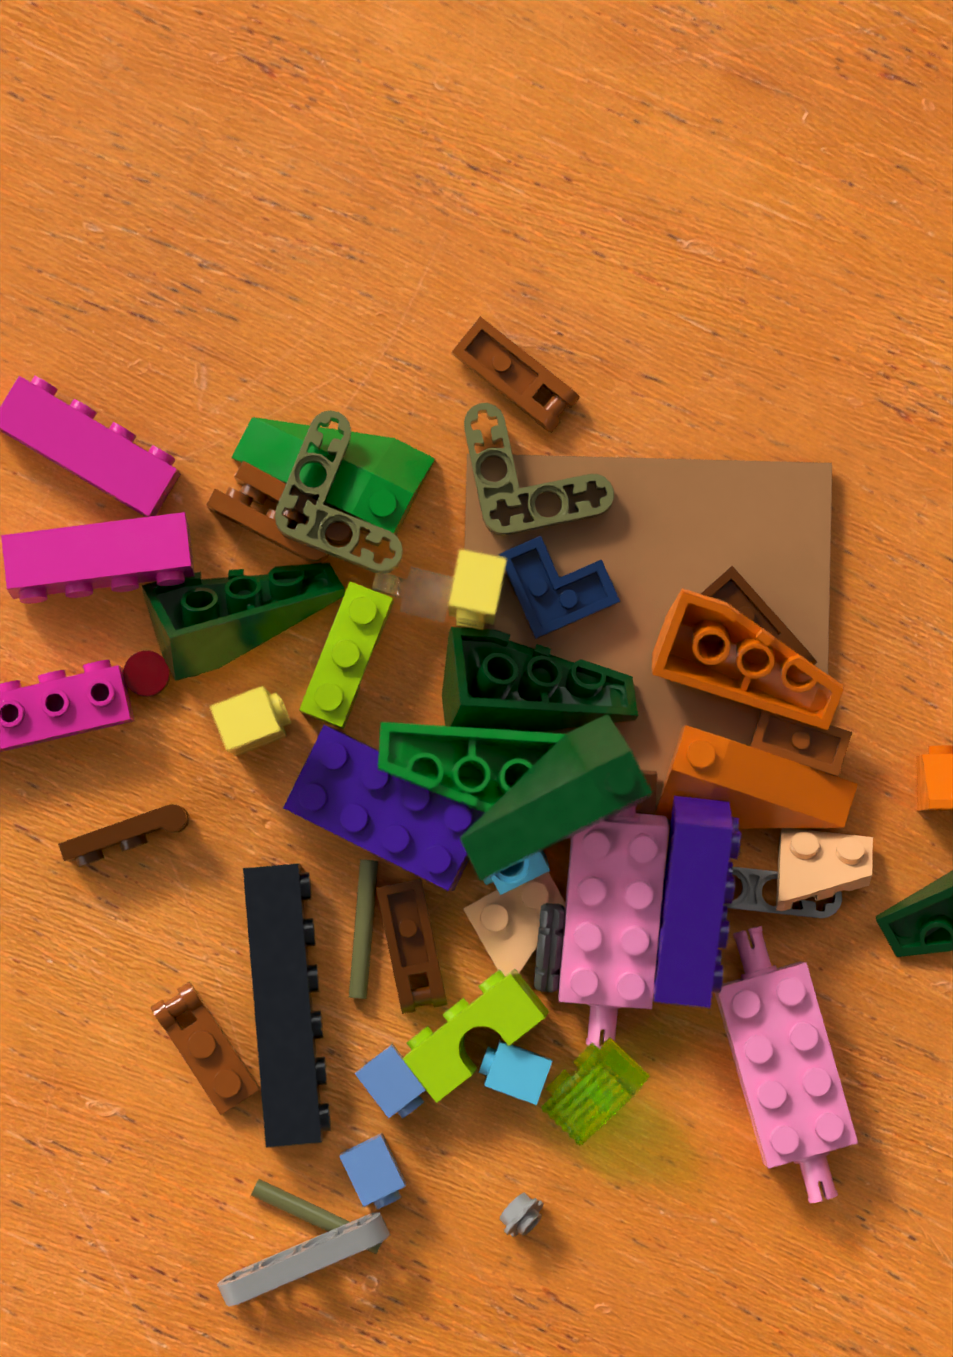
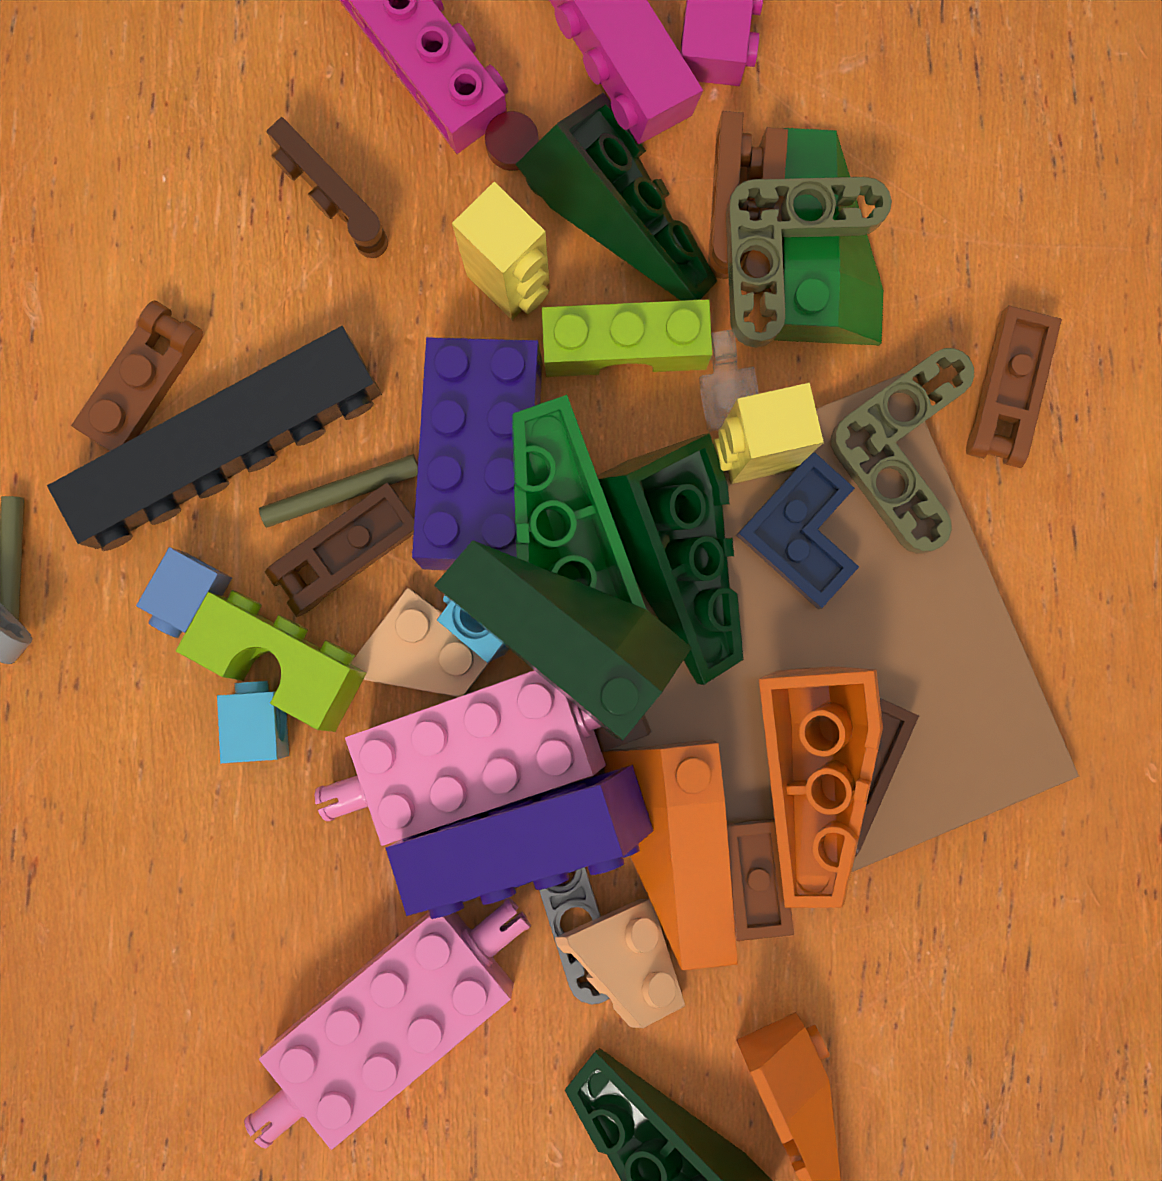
camera: 70 degrees right, 0 degrees up
(373, 1172) = (77, 616): medium blue brick -> none
(521, 1215) = (98, 800): light grey plate -> none
(549, 947) = (405, 700): dark grey axle -> none
(594, 1091) = (265, 821): clear neon green brick -> none

